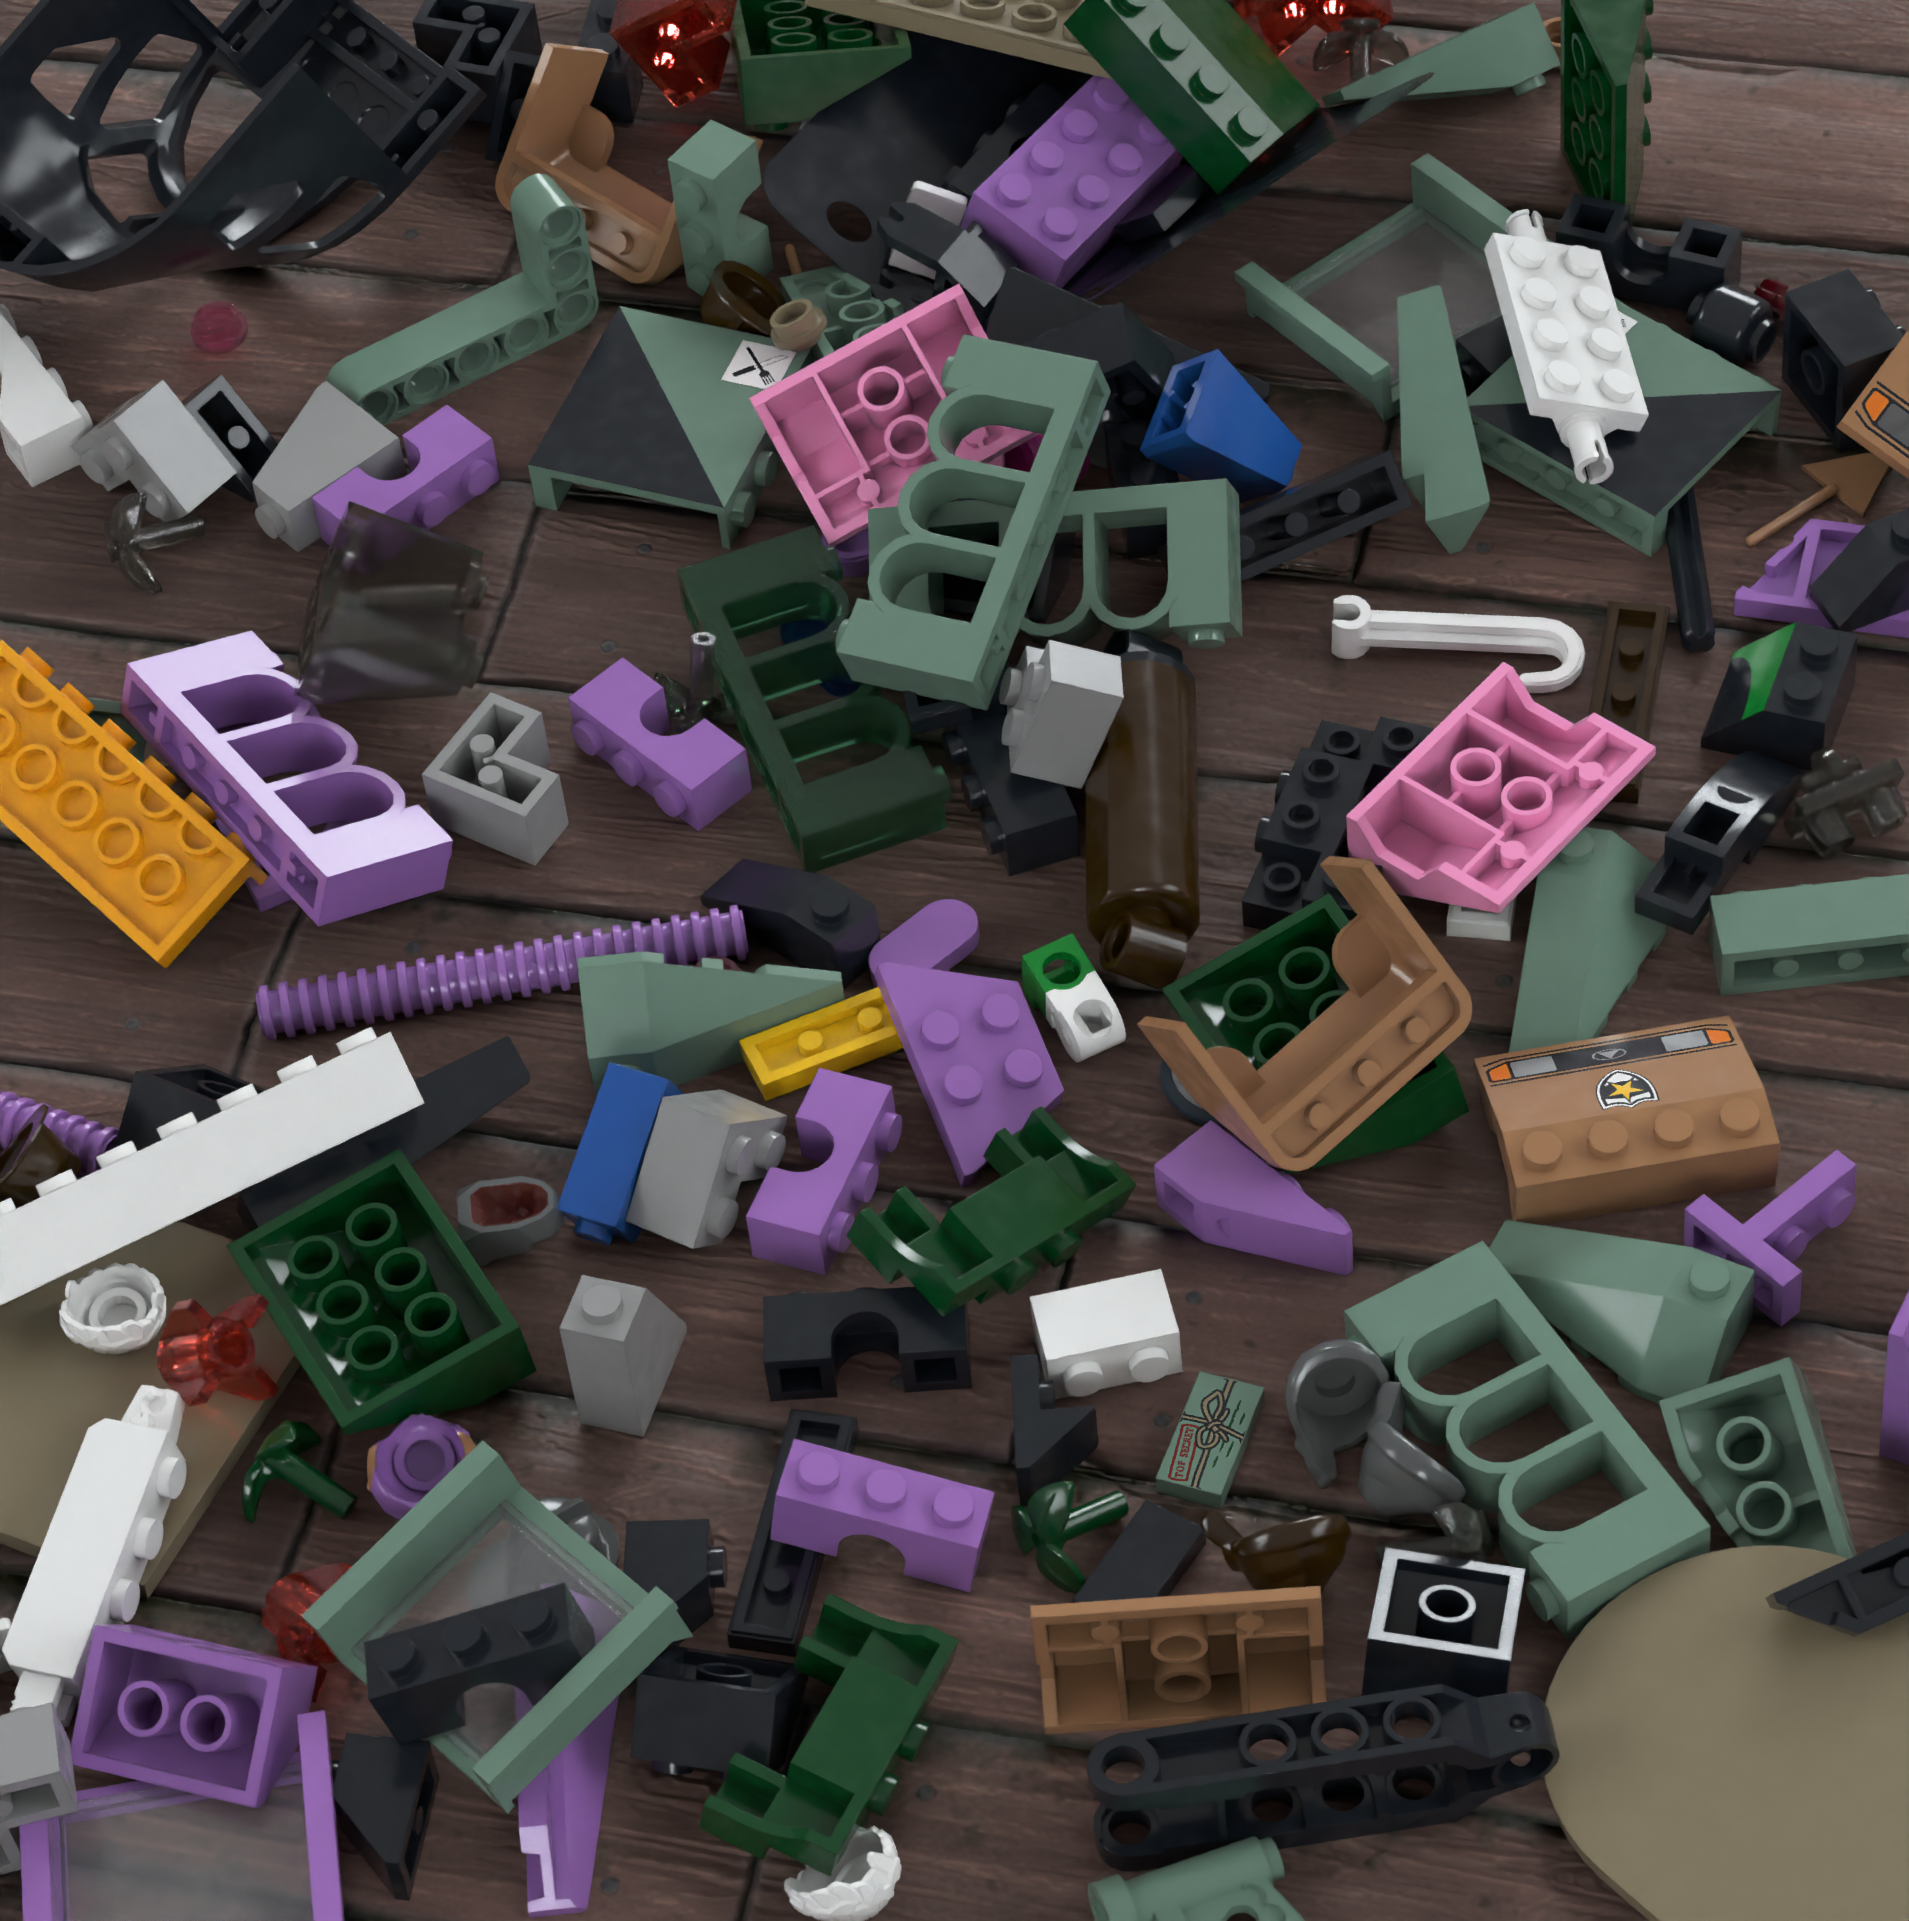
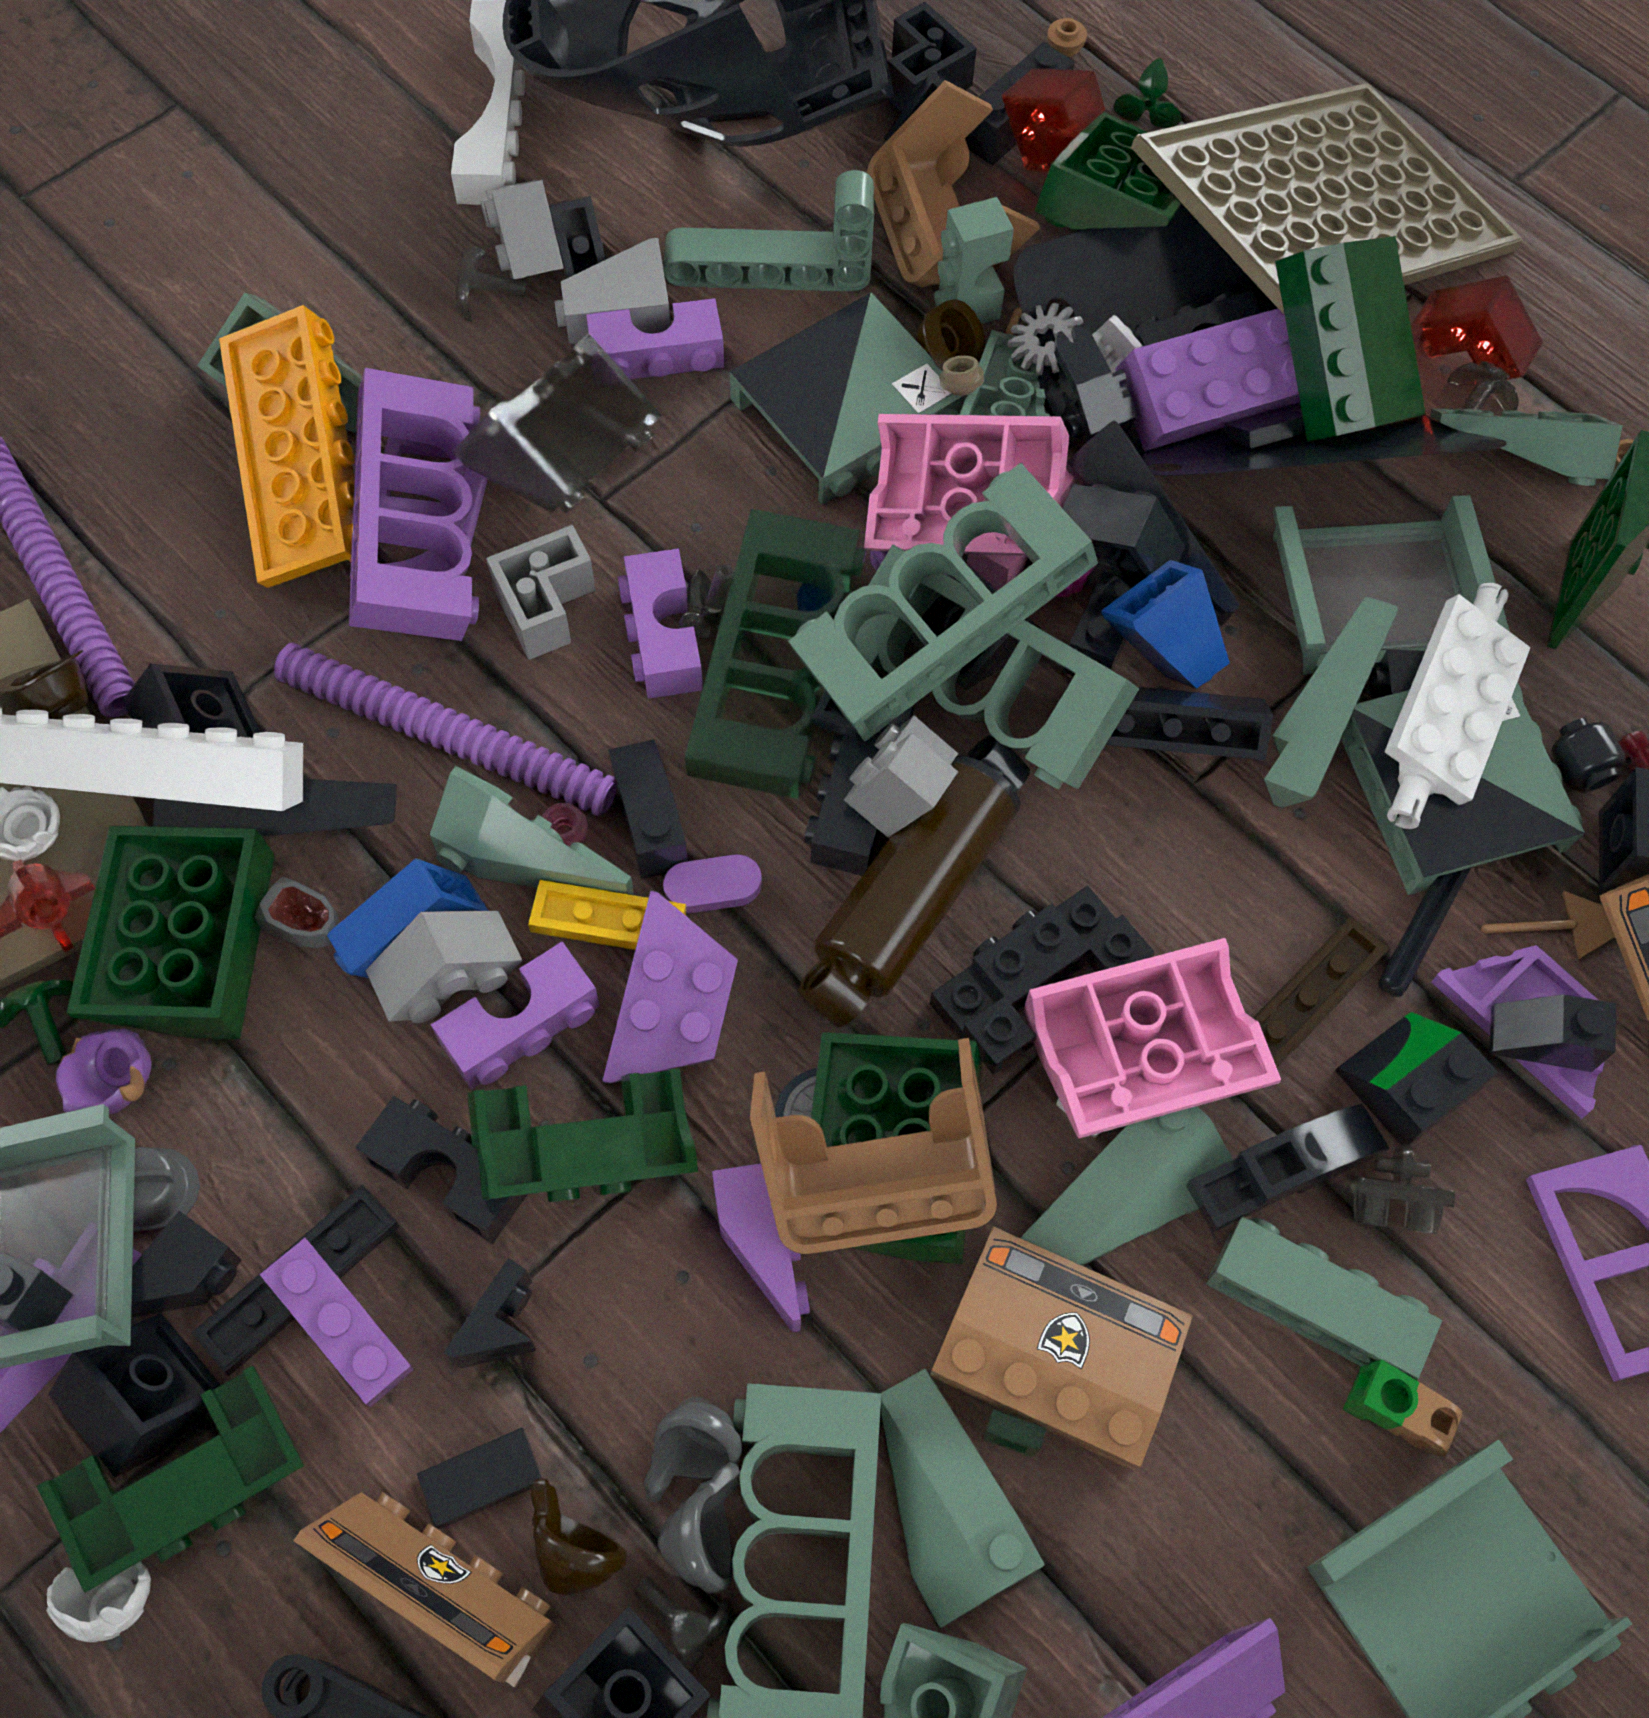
camera: 25 degrees right, 15 degrees up
(218, 327) = (638, 161): clear pink plate -> none
(619, 1352) = (282, 1068): light grey slope -> none
(839, 263) = (1030, 344): none -> light grey gear
(1054, 1522) = (442, 1408): dark green plant -> none
(1072, 998) = (768, 993): leg -> none
(1106, 1334) = (592, 1277): white brick -> none
(1210, 1439) = (603, 1405): sand green tile -> none
(1358, 627) = (1235, 877): white piece -> none
(1638, 1207) = (1013, 1433): none -> clear green tile
(1649, 273) = (1552, 664): black arch -> none
(1777, 1232) = (1093, 1527): medium lavender bracket -> none

